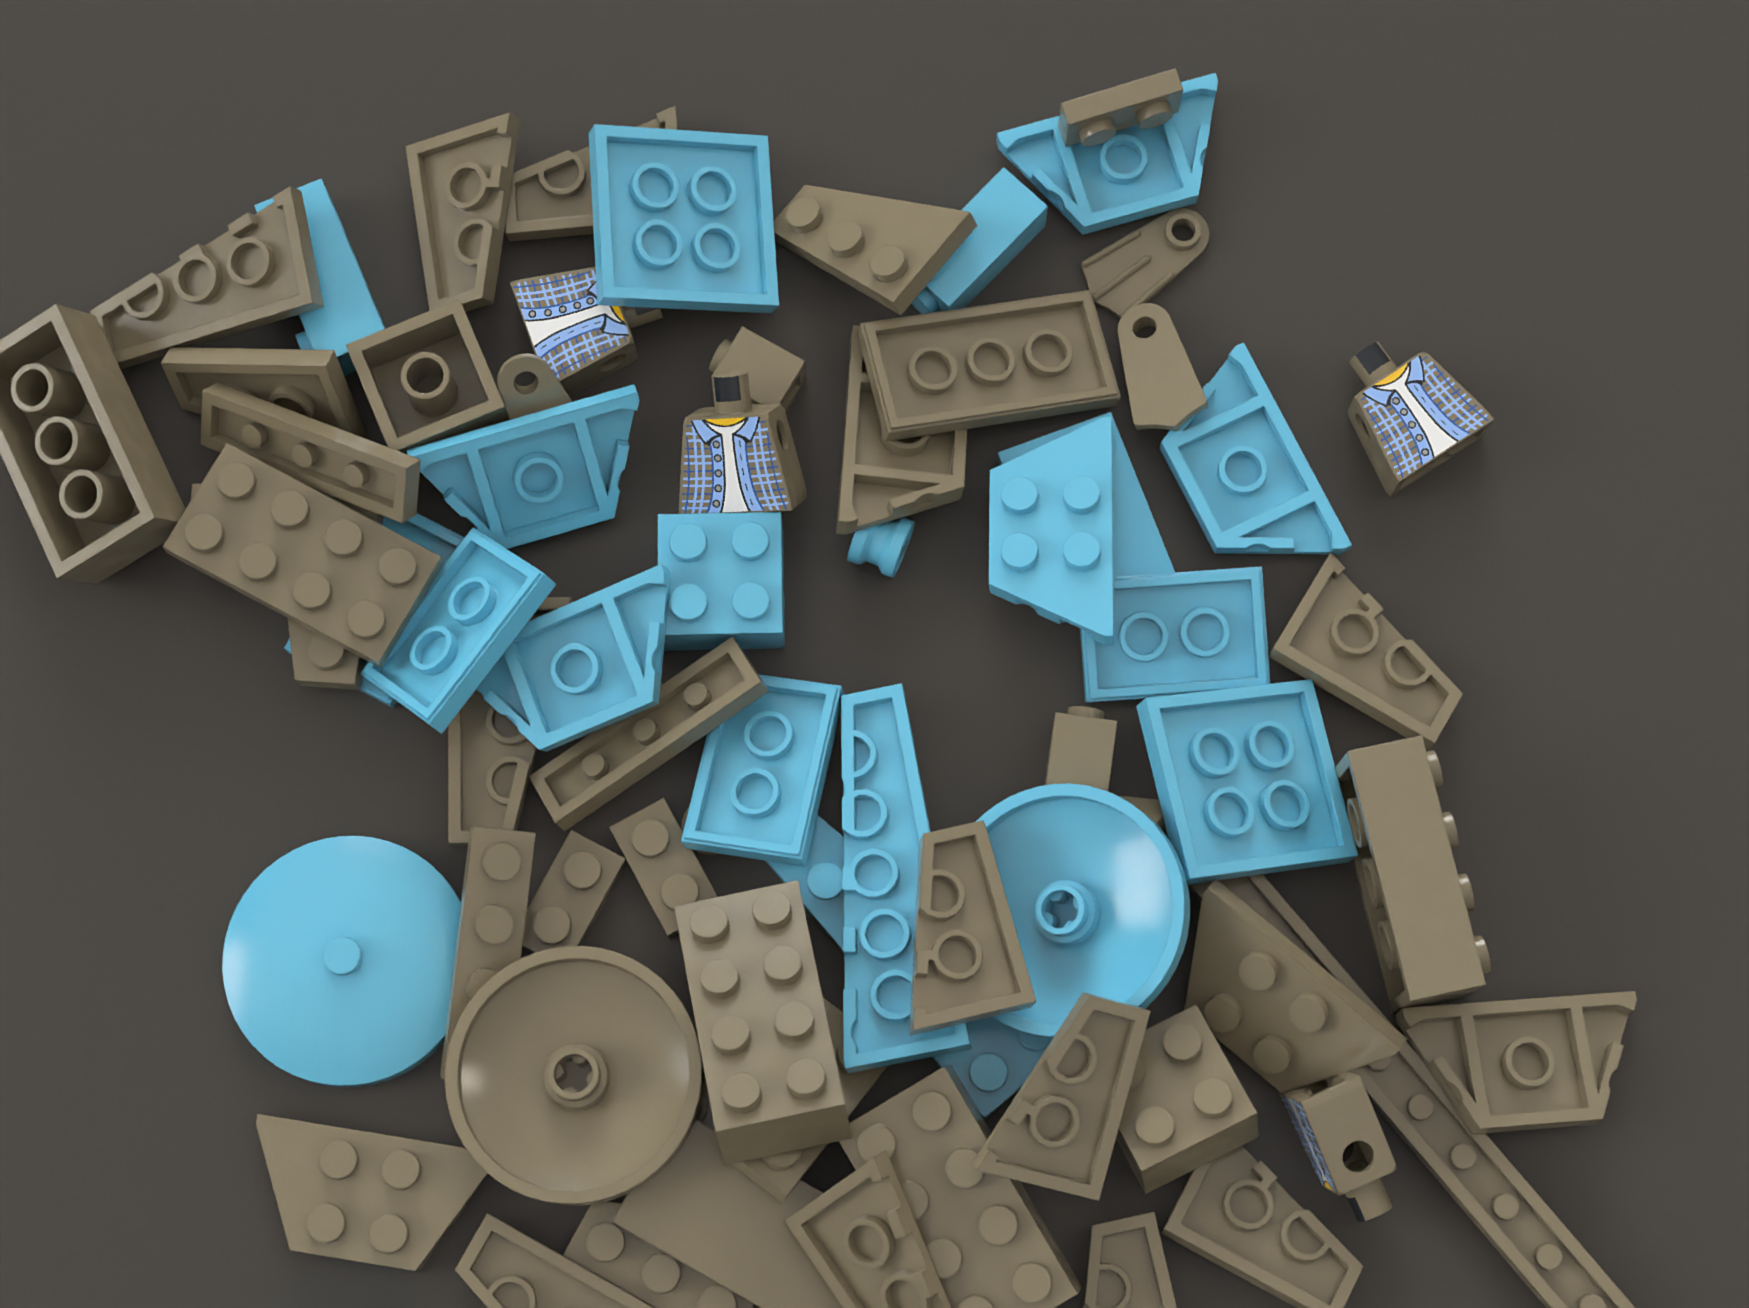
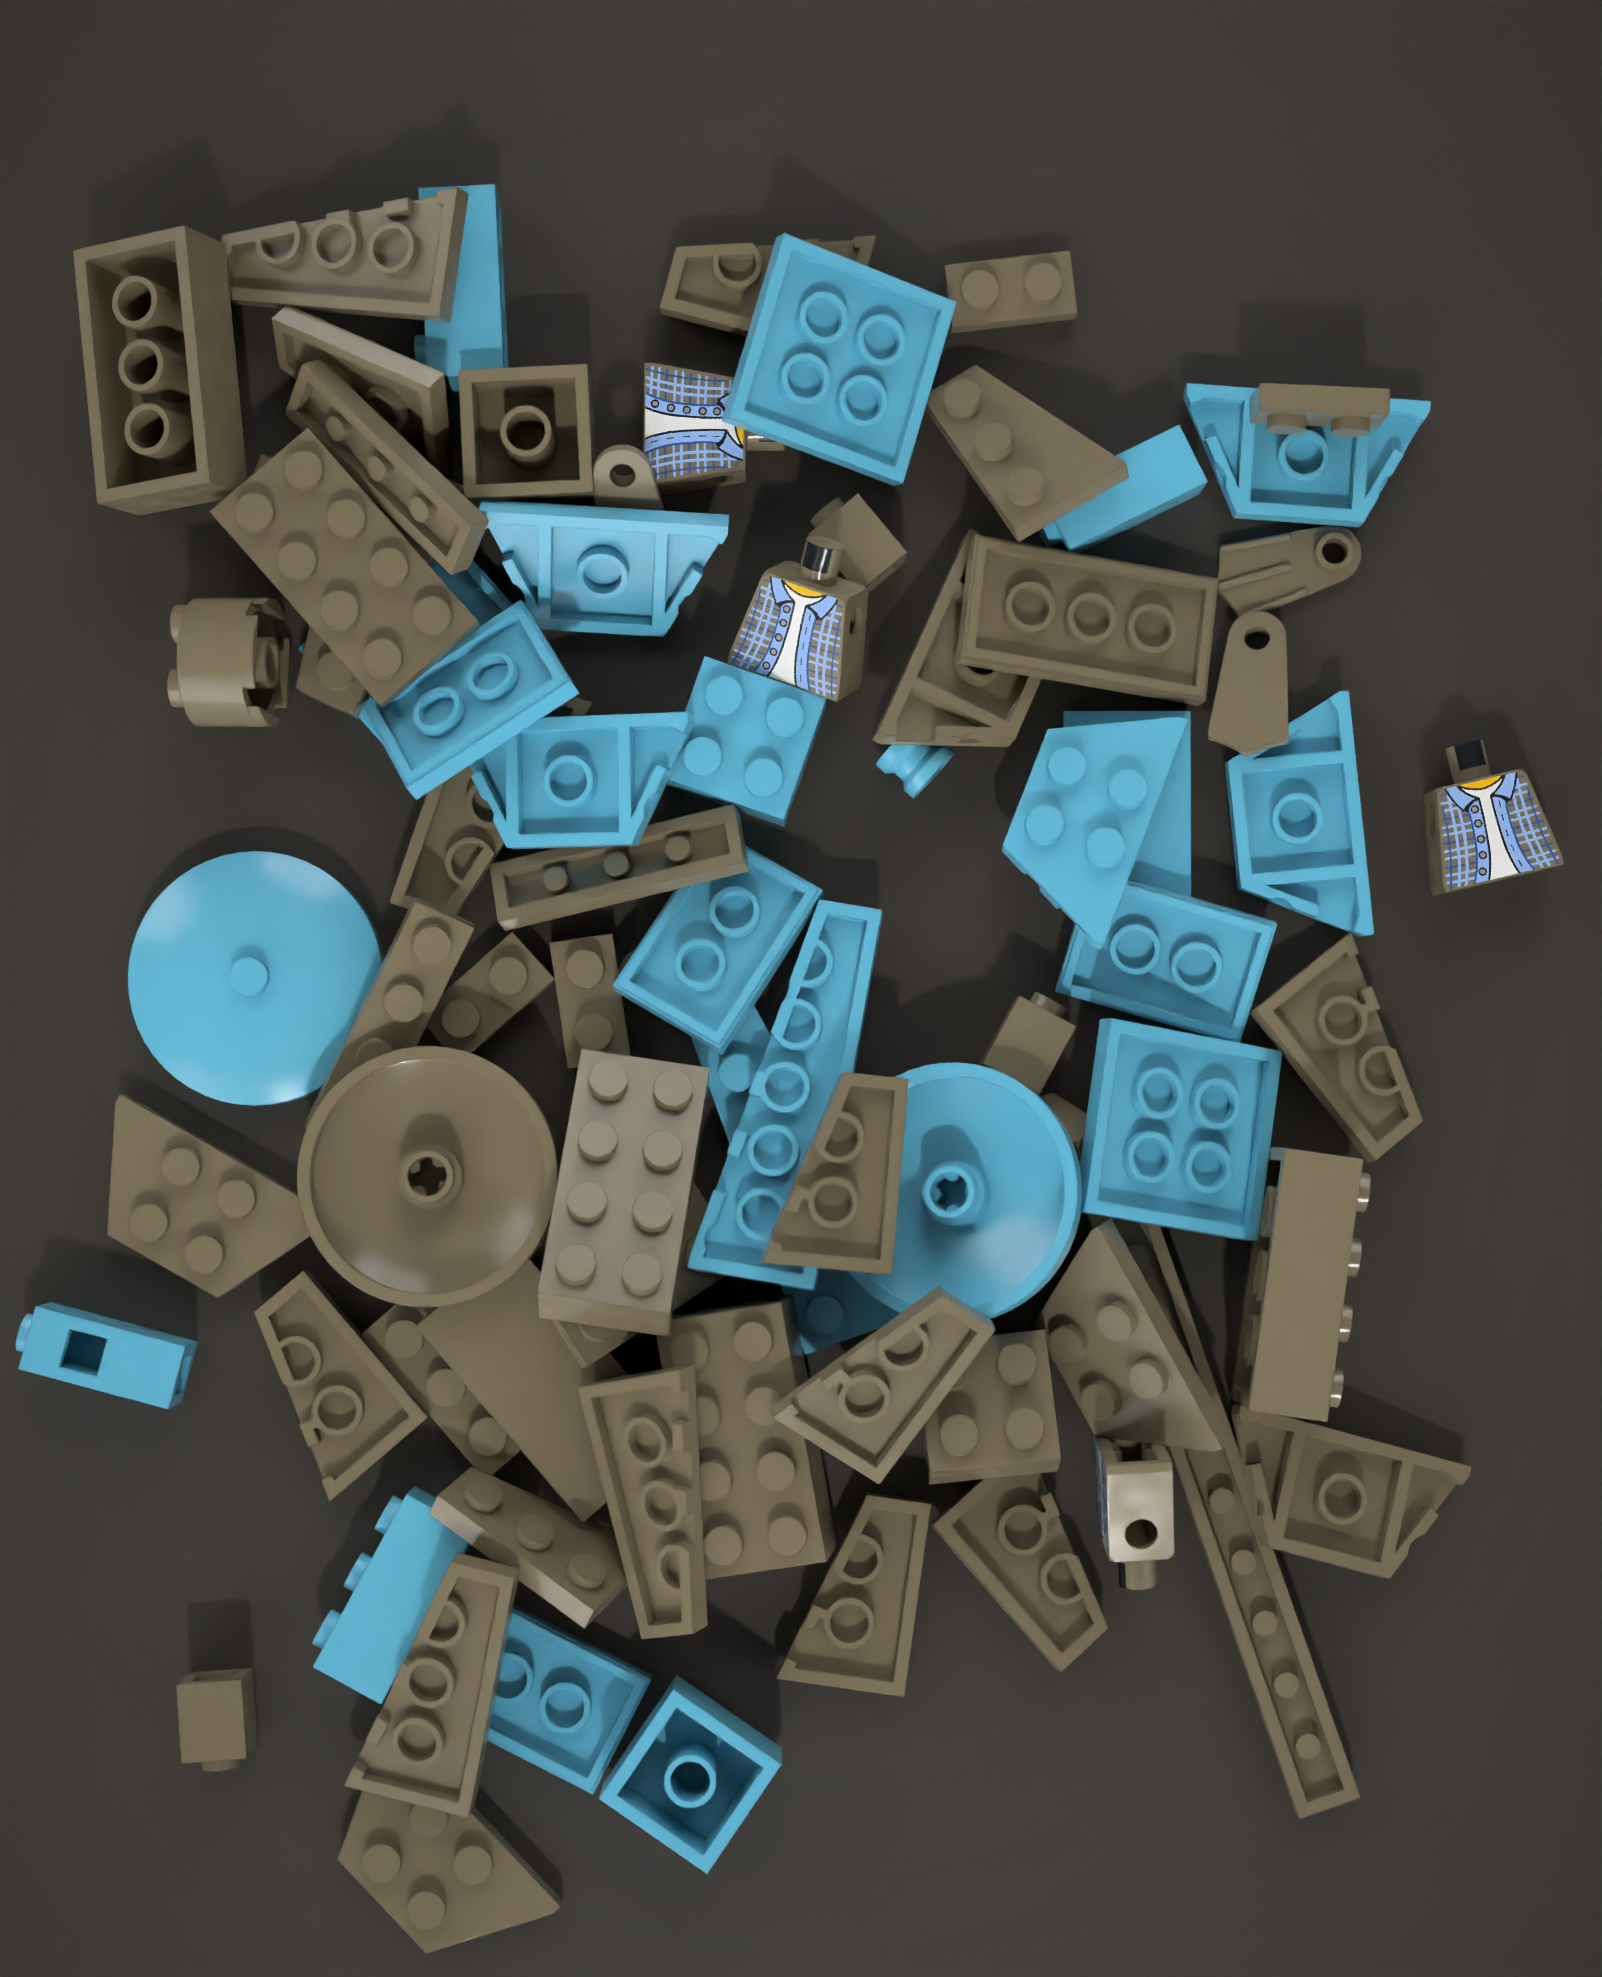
camera: 20 degrees right, 10 degrees up
(226, 677) = (230, 662): none -> dark tan brick
(462, 208) = (624, 265): dark tan wing -> none
(812, 113) = (1011, 291): none -> dark tan plate

